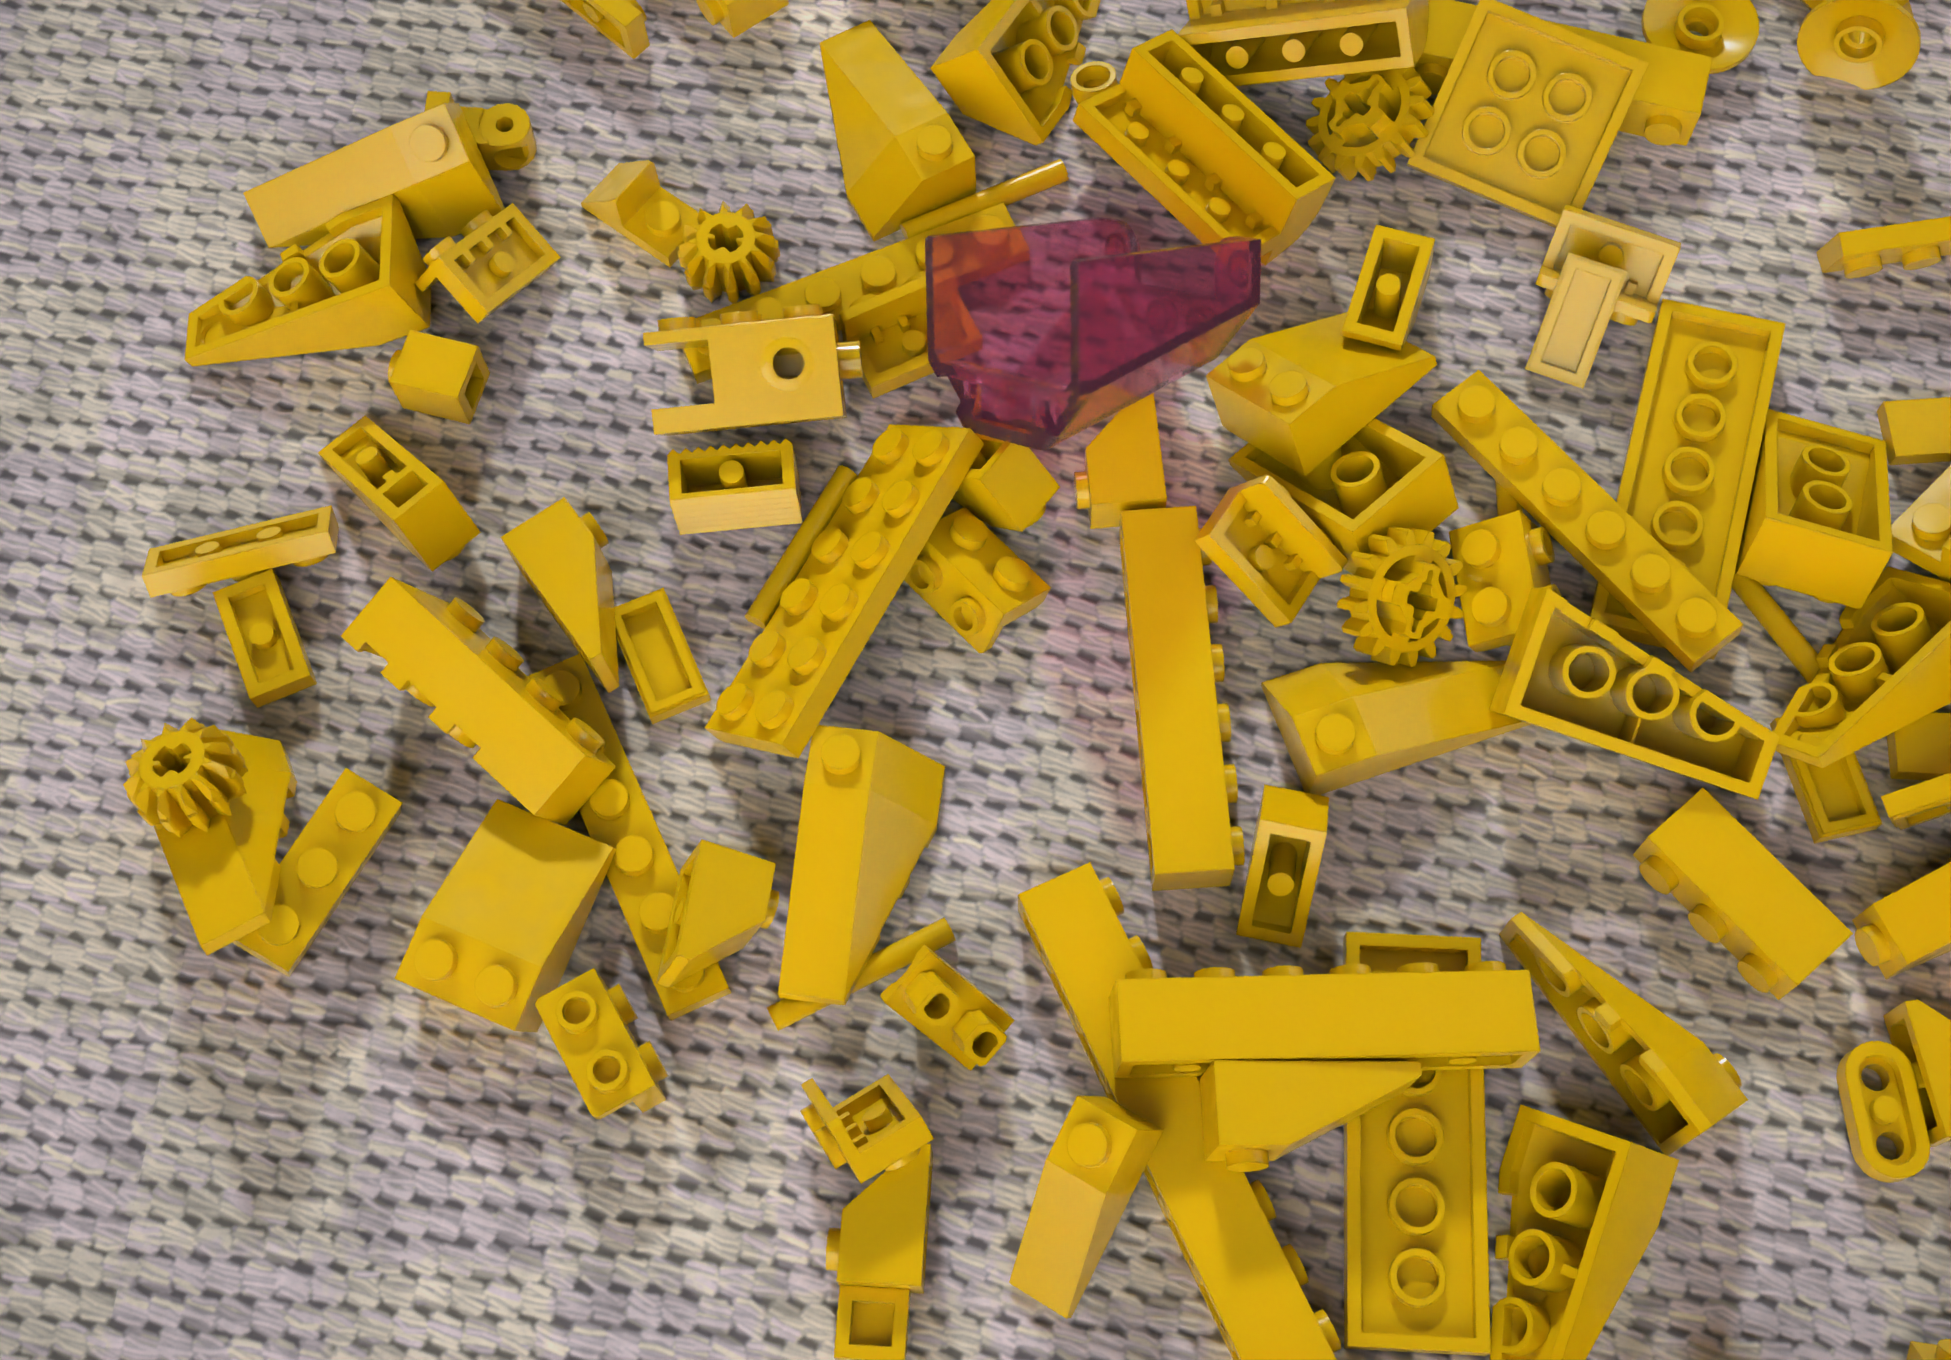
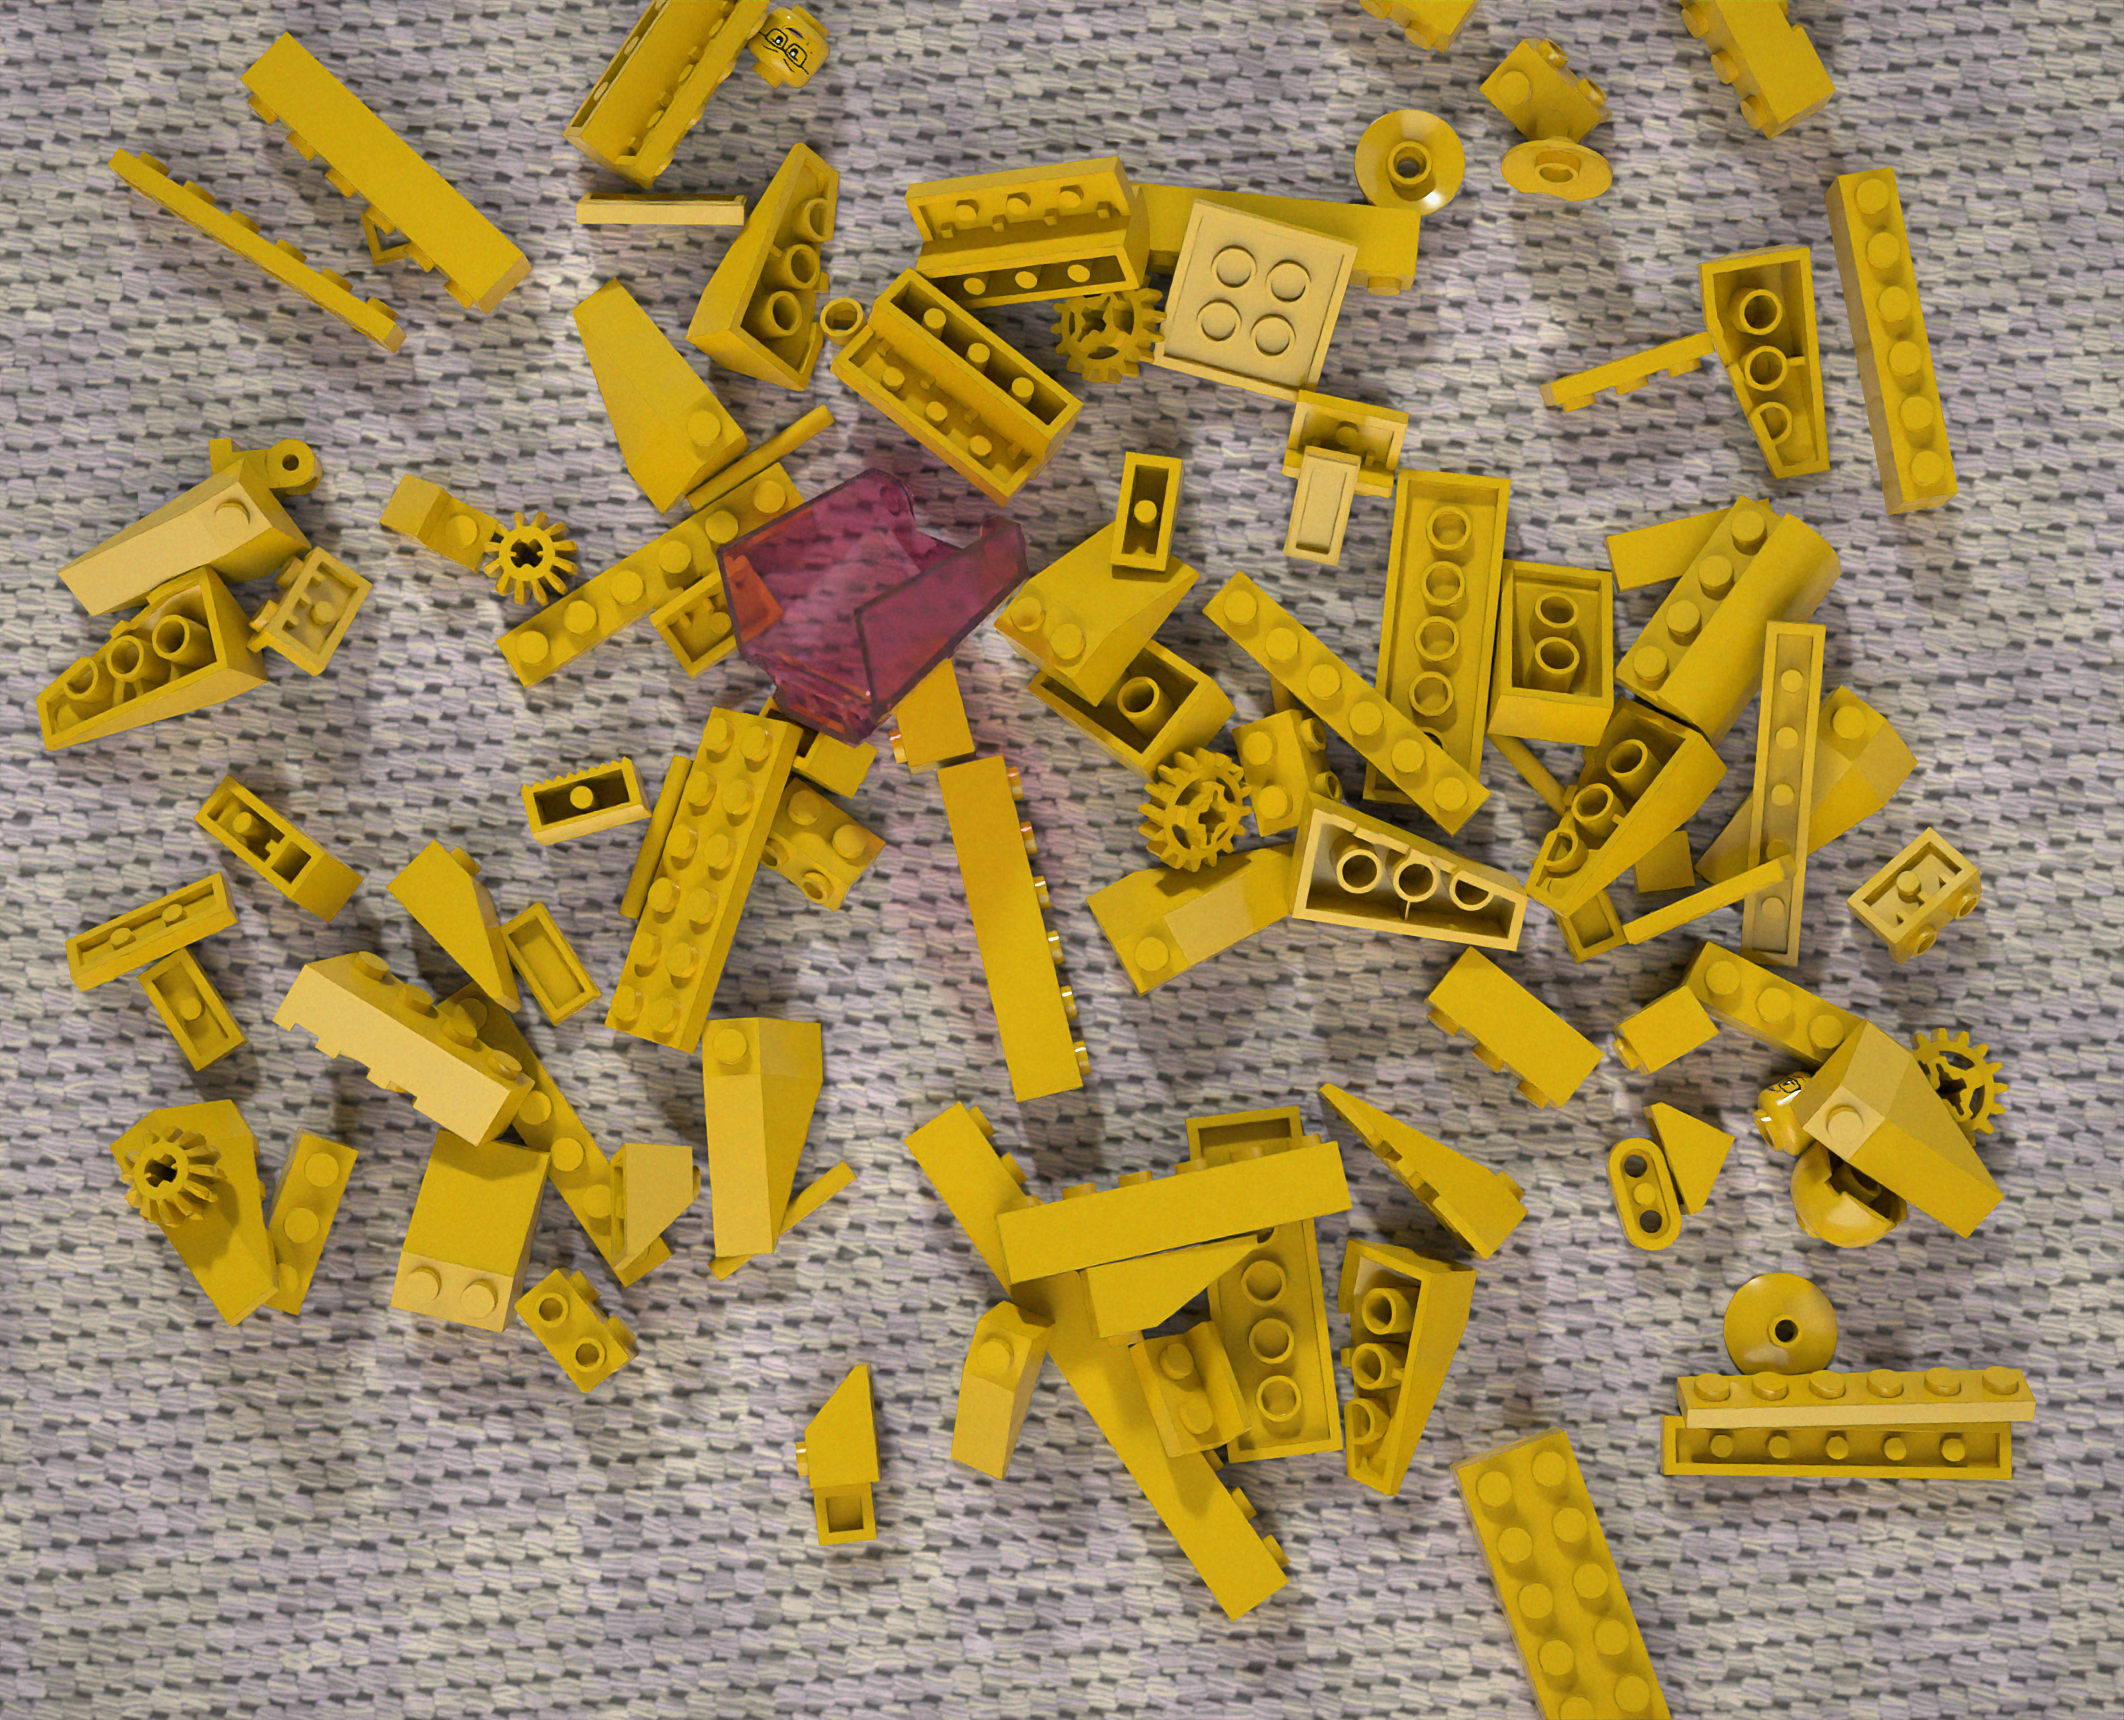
camera: 10 degrees left, 15 degrees up
(438, 376) = (287, 730): yellow brick -> none
(761, 369) = (594, 691): yellow torso -> none
(868, 1130) = (811, 1360): yellow bracket -> none
(949, 1009) = (863, 1246): yellow hips -> none
(1269, 547) = (1071, 783): yellow bracket -> none
(1283, 865) = (1125, 1067): yellow slope -> none
(1317, 1242) = (1191, 1390): none -> yellow bracket

